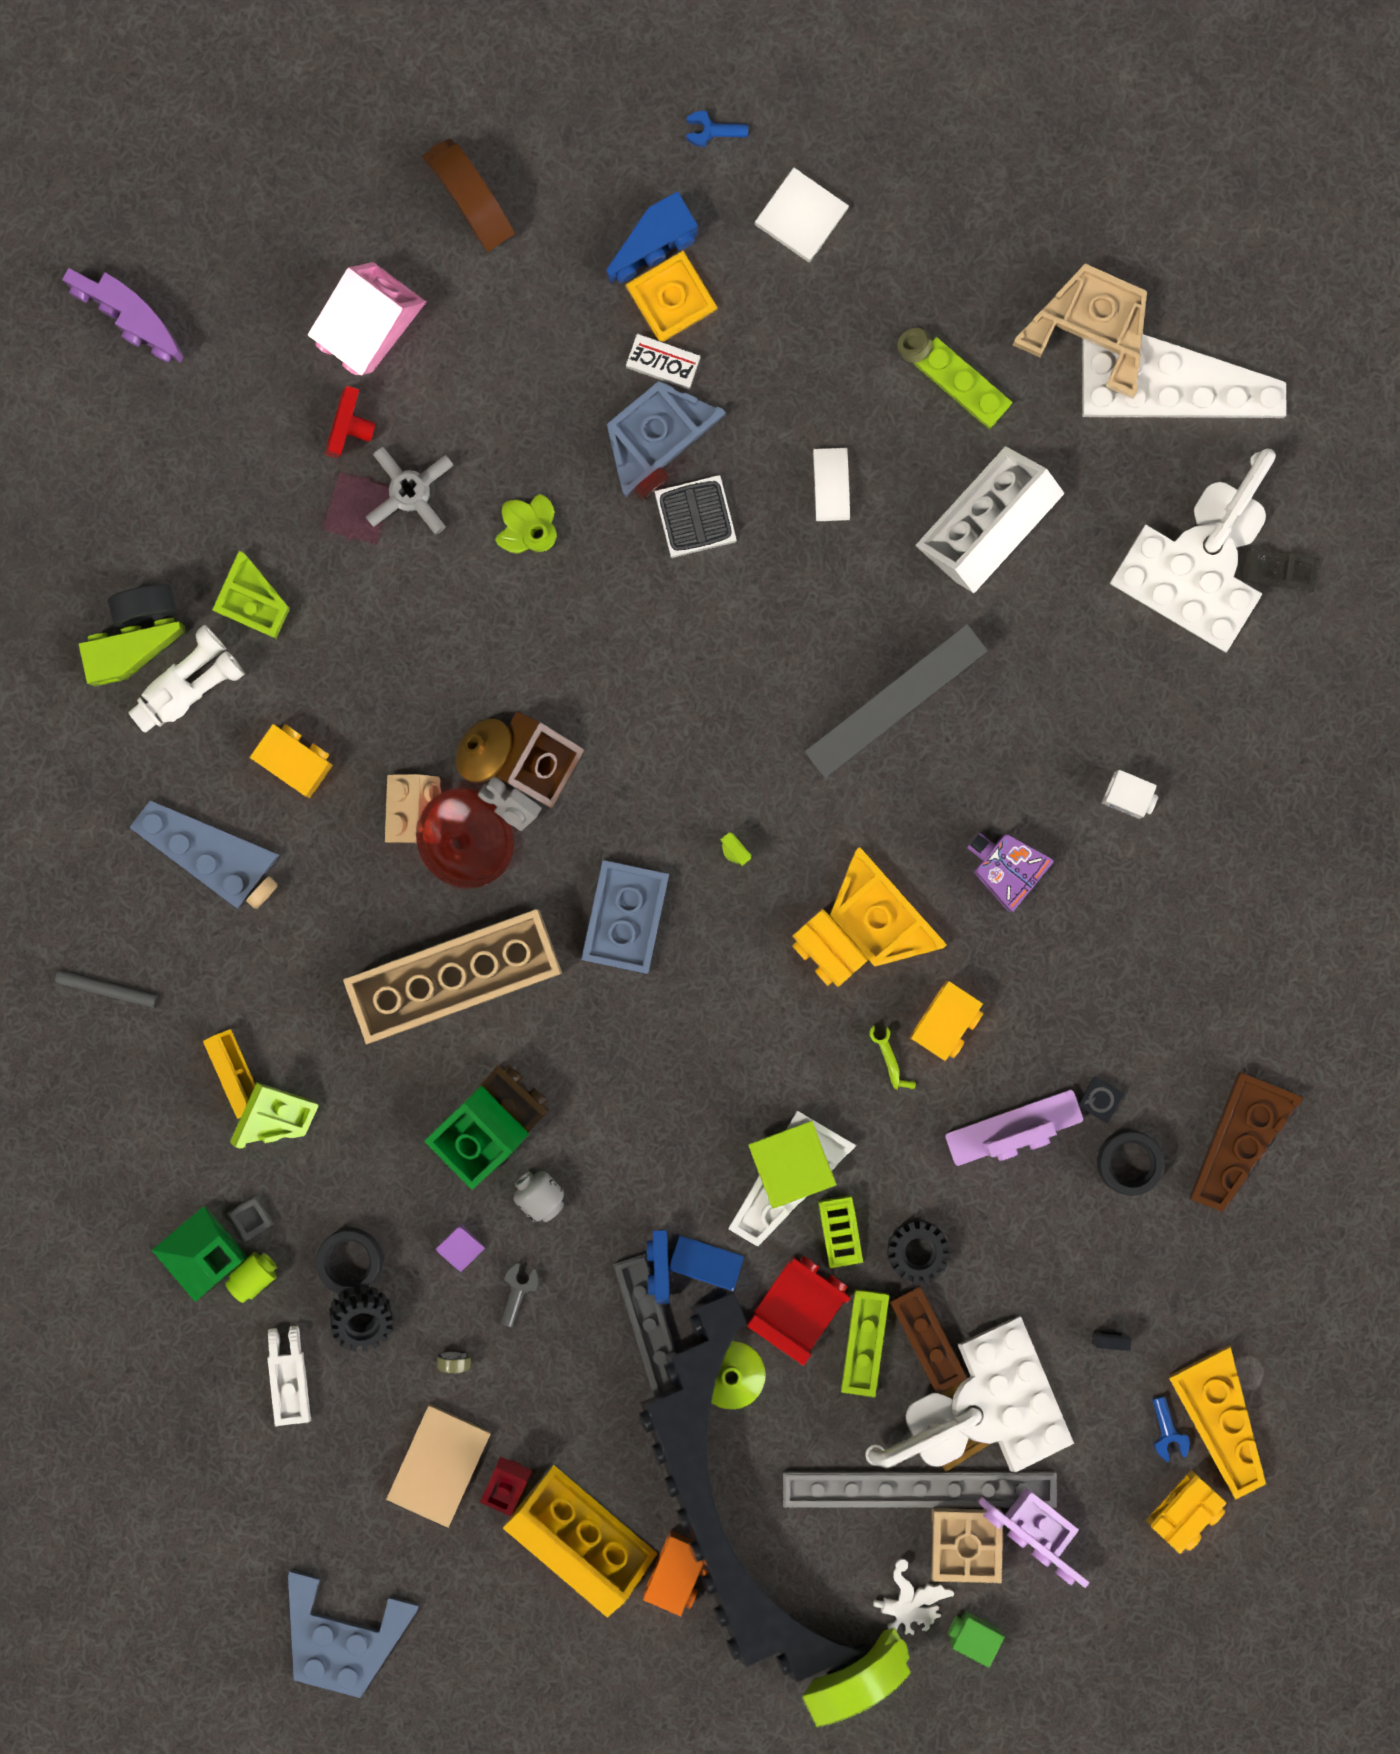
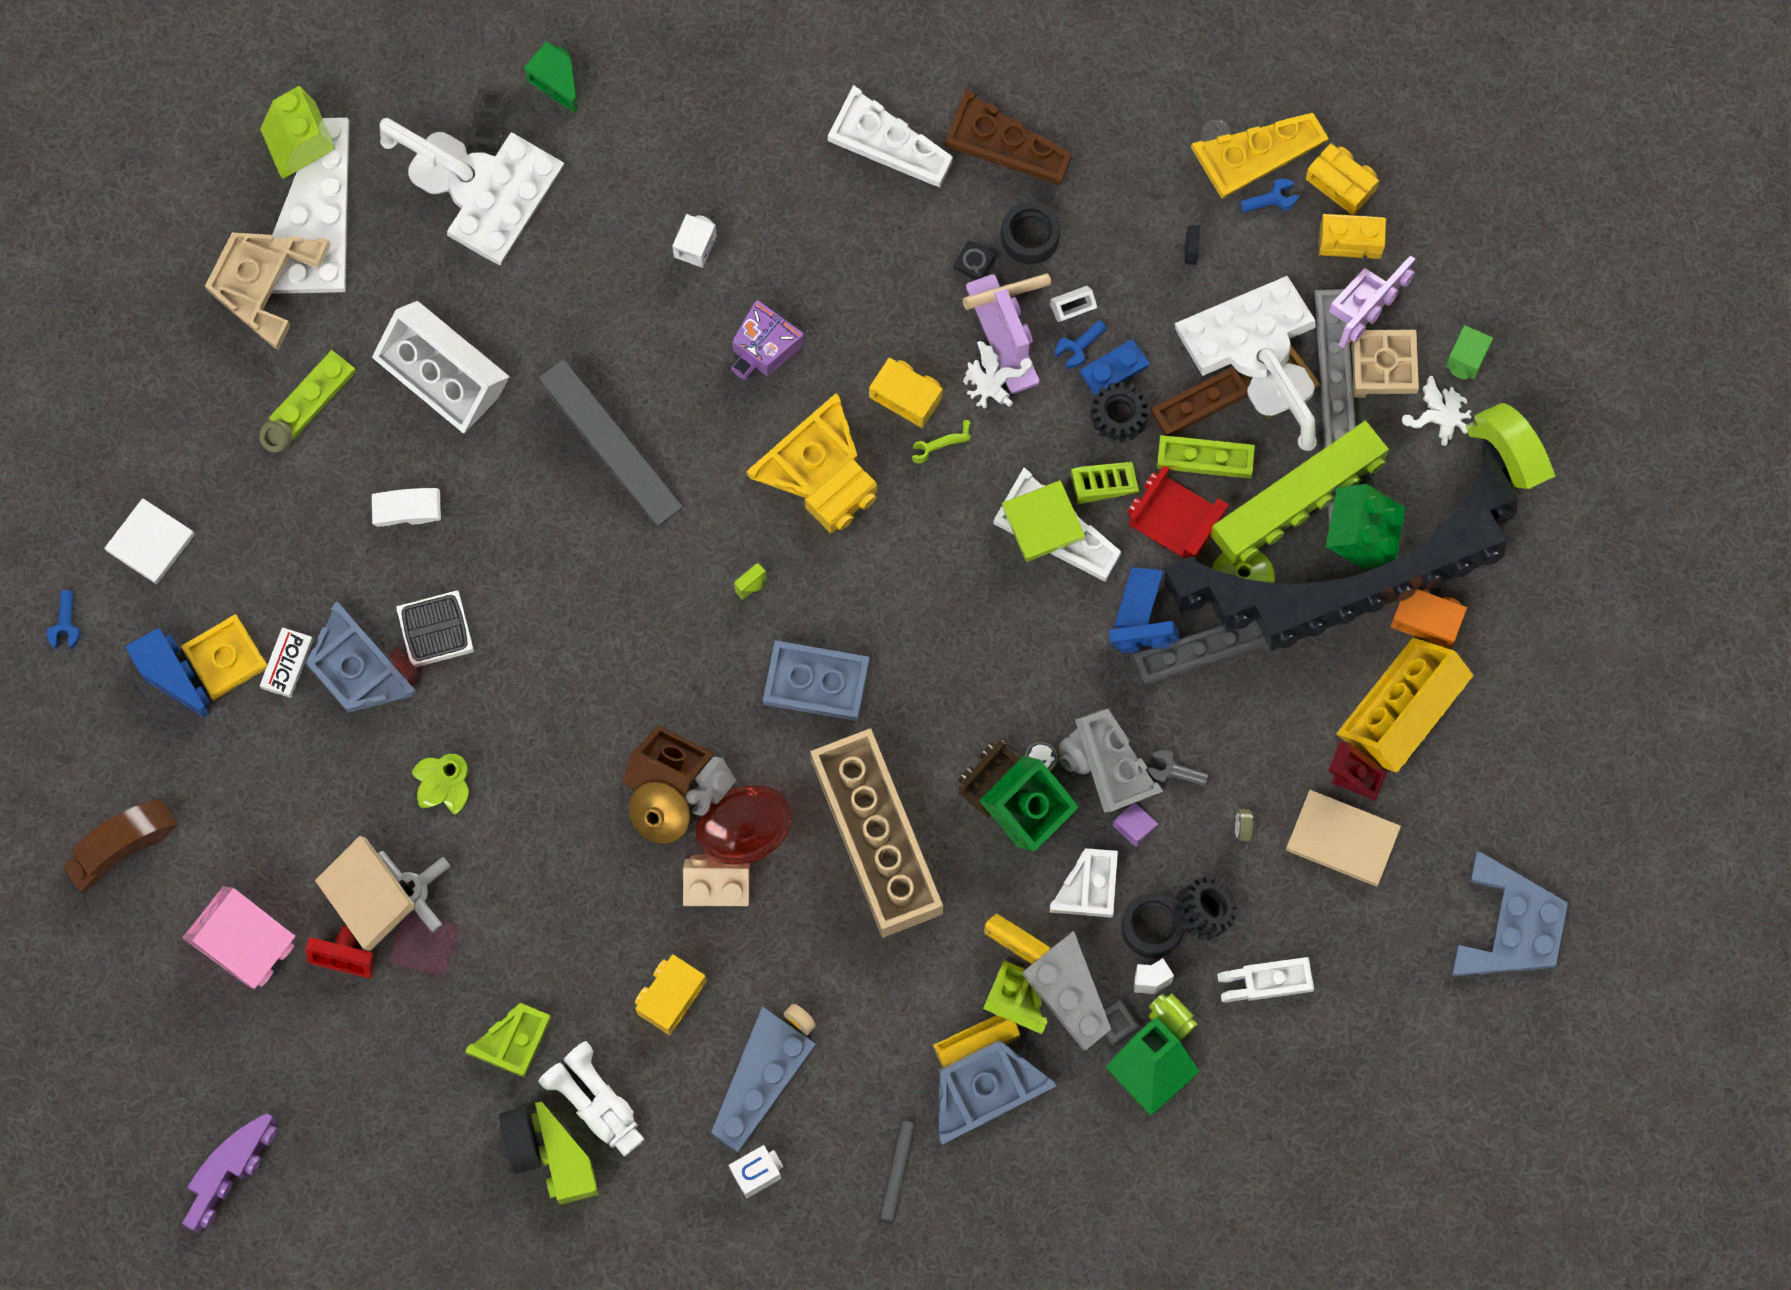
camera: 90 degrees left, 15 degrees down
(106, 845) = (756, 1170): none -> white brick
(183, 1081) = (984, 1088): none -> sand blue wing
(277, 1171) = (1069, 991): none -> light grey wing
(290, 1258) = (1152, 978): none -> white piece
(340, 1119) = (1015, 938): none -> yellow slope
(394, 1197) = (1089, 886): none -> white wing
(404, 446) = (365, 893): none -> tan tile
(518, 1228) = (1114, 766): none -> light grey wing
(534, 1151) = (1045, 753): none -> tile
(772, 1513) = (1365, 526): none -> green brick
(816, 1445) = (1299, 493): none -> lime brick
(957, 1113) = (991, 382): none -> white piece
(971, 1248) = (1115, 367): none -> blue plate
(1000, 1211) = (1077, 346): none -> blue bar
(1050, 1205) = (1085, 292): none -> white piece
(1062, 1137) = (1013, 289): none -> tan bar
(1116, 1518) = (1352, 236): none -> yellow brick
(1251, 999) = (876, 134): none -> white wing
(1266, 359) = (295, 132): none -> lime slope
(1331, 641) = (553, 74): none -> green slope

